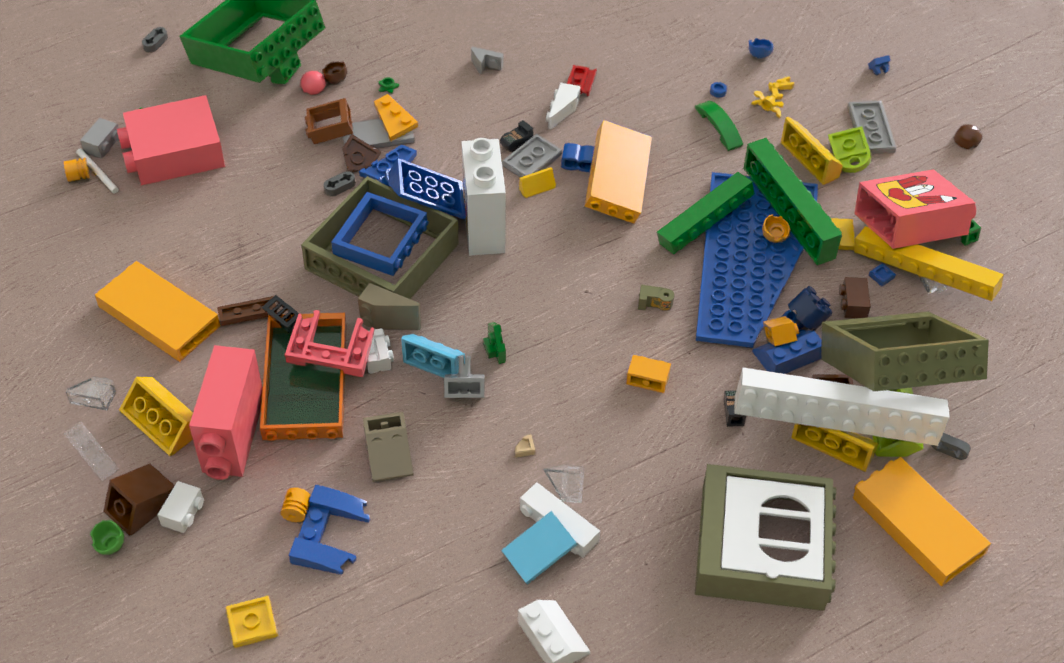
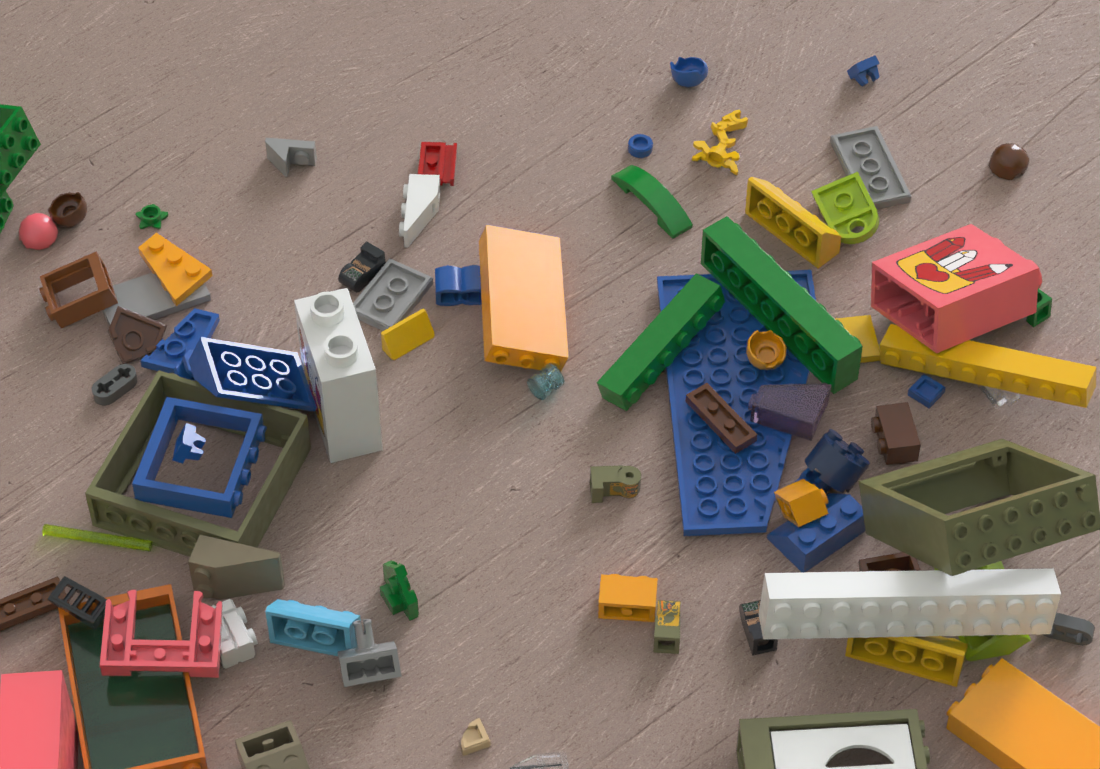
camera: 10 degrees left, 0 degrees up
(304, 276) = (97, 537): none -> clear neon green bar
(373, 223) = (186, 444): none -> blue tile
(625, 225) = (545, 381): none -> clear light blue wheel
(671, 397) = (667, 627): none -> olive leg
(736, 268) = (721, 418): none -> reddish brown plate
(785, 268) = (790, 407): none -> clear purple slope

